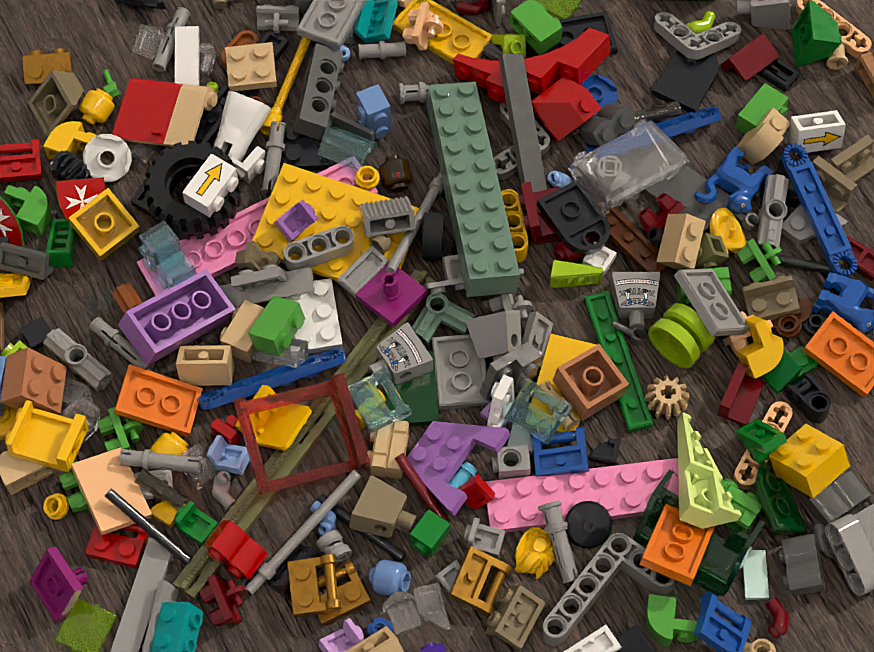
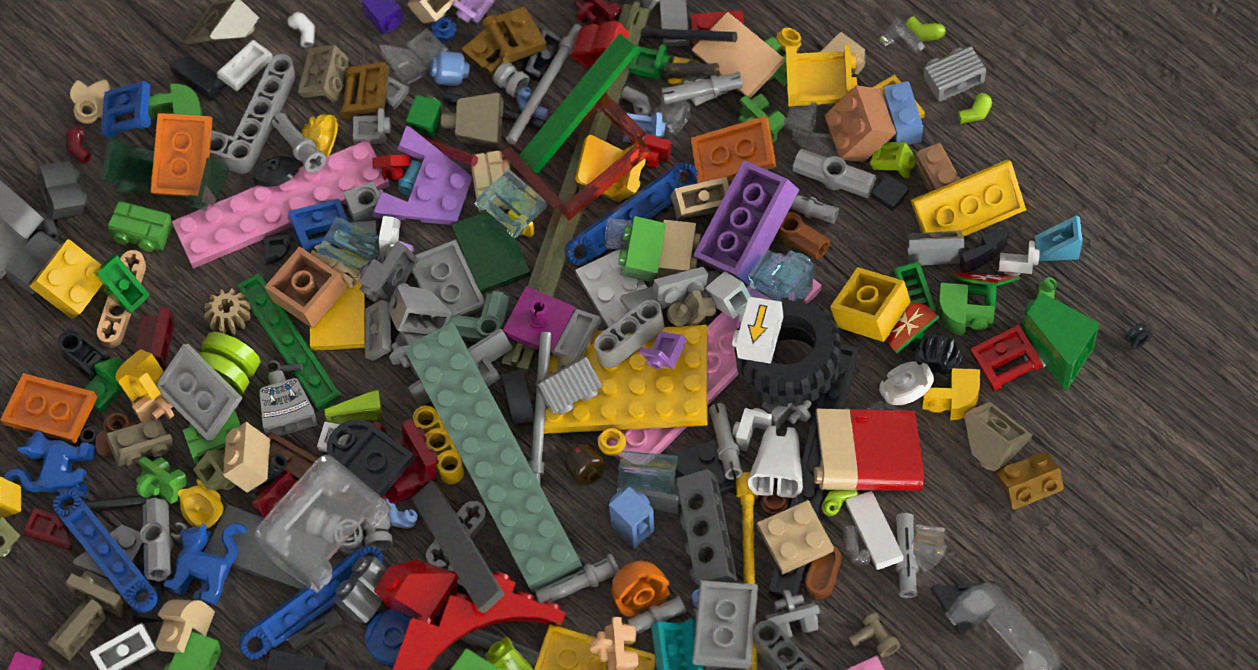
camera: 165 degrees right, 0 degrees up
(96, 106) = (949, 443): yellow head -> none
(111, 87) = (945, 477): bright green hand -> none
(169, 444) = (702, 115): yellow head -> none
(220, 265) = (728, 294): none -> white brick
(279, 468) = (578, 103): none -> green tile
(388, 67) = (639, 587): none -> orange cylinder
(402, 355) = (506, 263): light grey torso -> none
(700, 491) = (171, 216): yellowish green wedge -> none
(755, 576) = (105, 190): light aqua piece -> none
(778, 503) = (94, 232): dark green tile -> none

